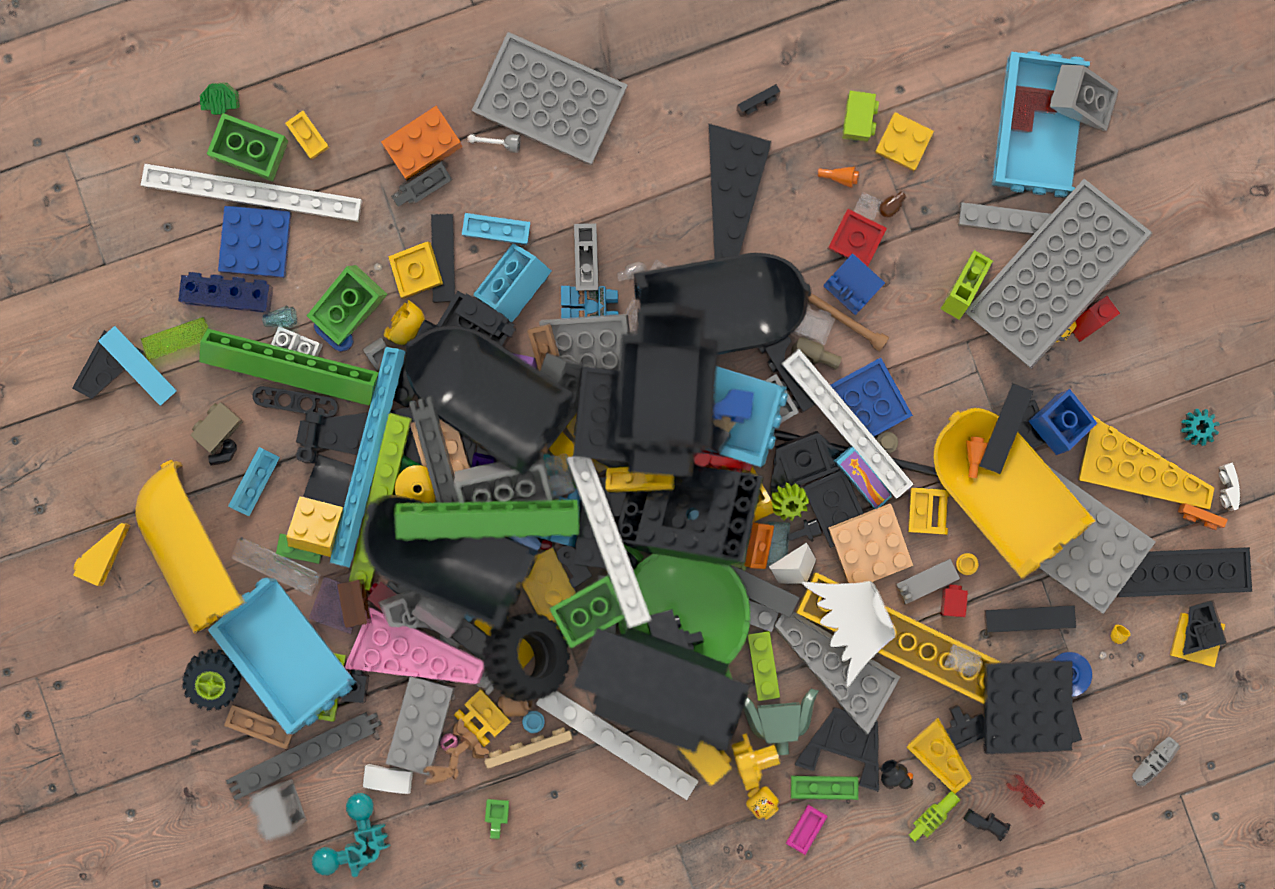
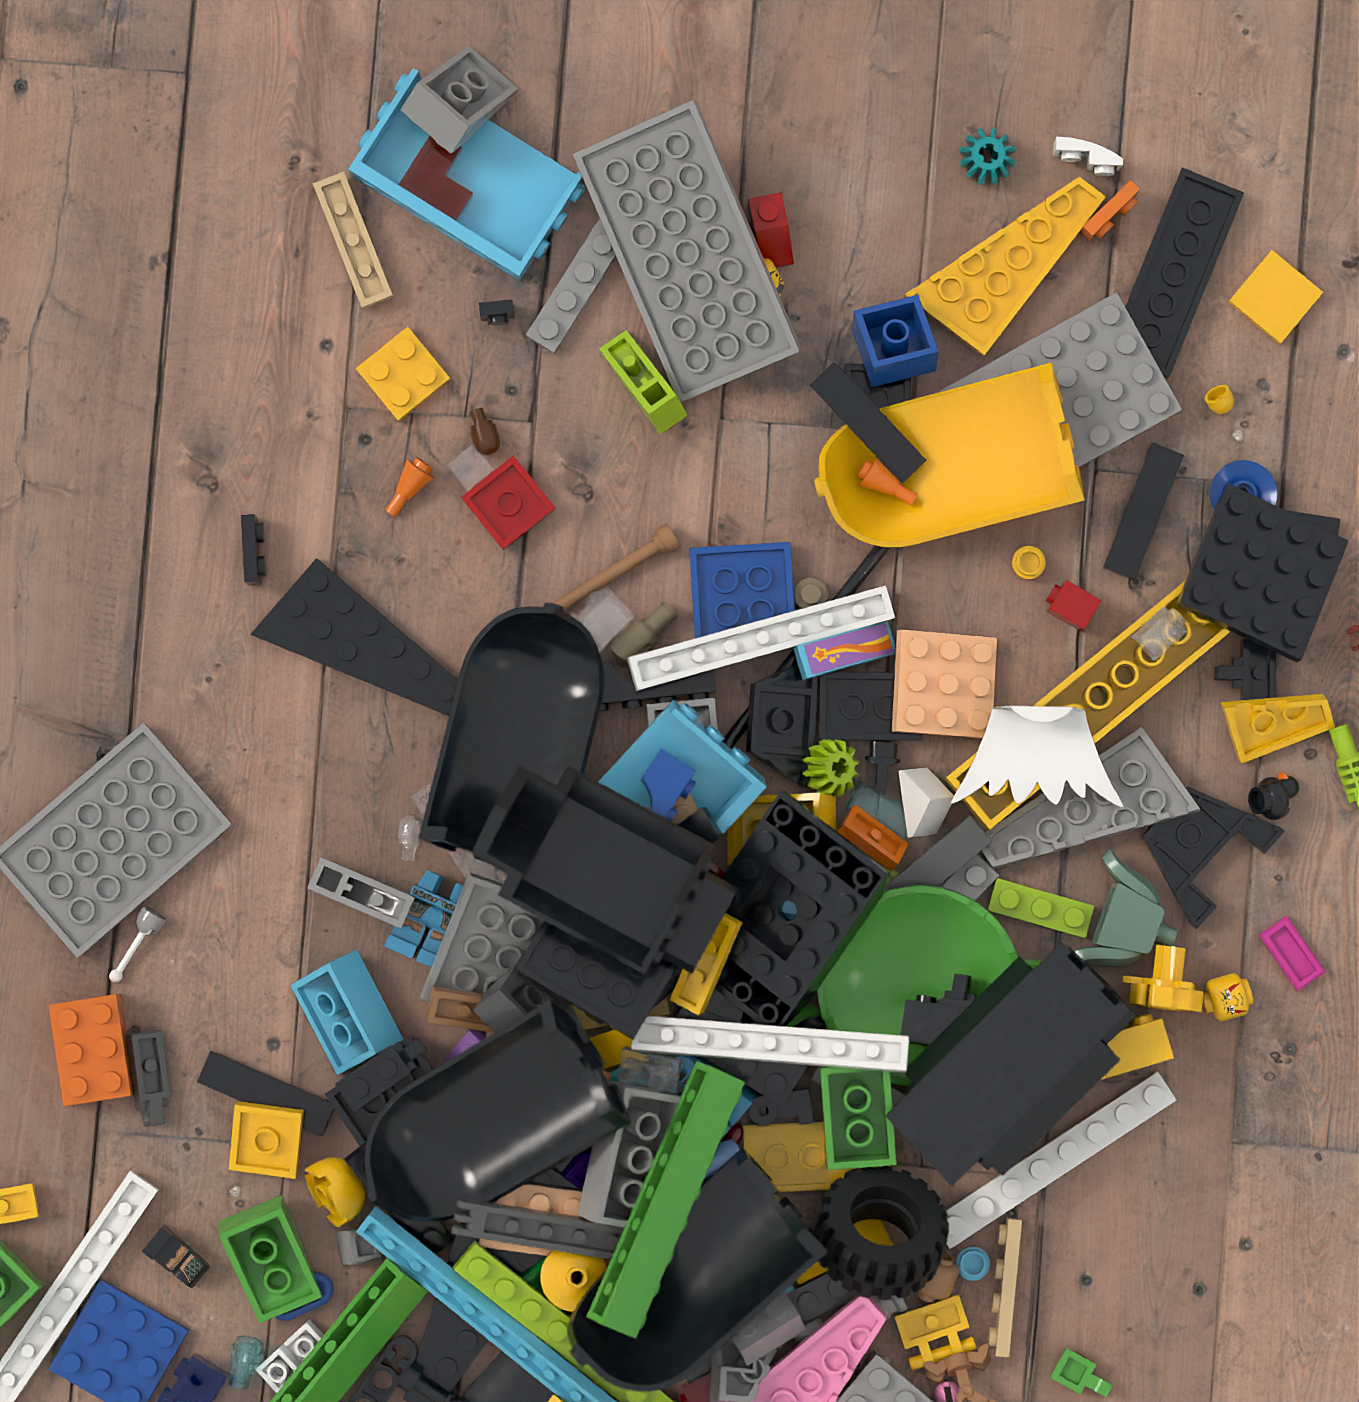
camera: 70 degrees left, 0 degrees up
(323, 249) = (176, 1257): none -> black leg
(496, 229) = (260, 1000): medium azure plate -> none
(717, 461) = (731, 841): red hinge -> none
(824, 787) = (1245, 901): bright green tile -> none
(854, 284) = (570, 537): blue hinge -> none
(859, 116) = (338, 419): lime brick -> none
(921, 511) = (926, 590): yellow plate -> none
(927, 581) = (1027, 627): light grey hinge -> none
(967, 179) = (496, 311): none -> black plate
(969, 75) = (353, 240): none -> tan plate
(1203, 628) = (1264, 282): black slope -> none

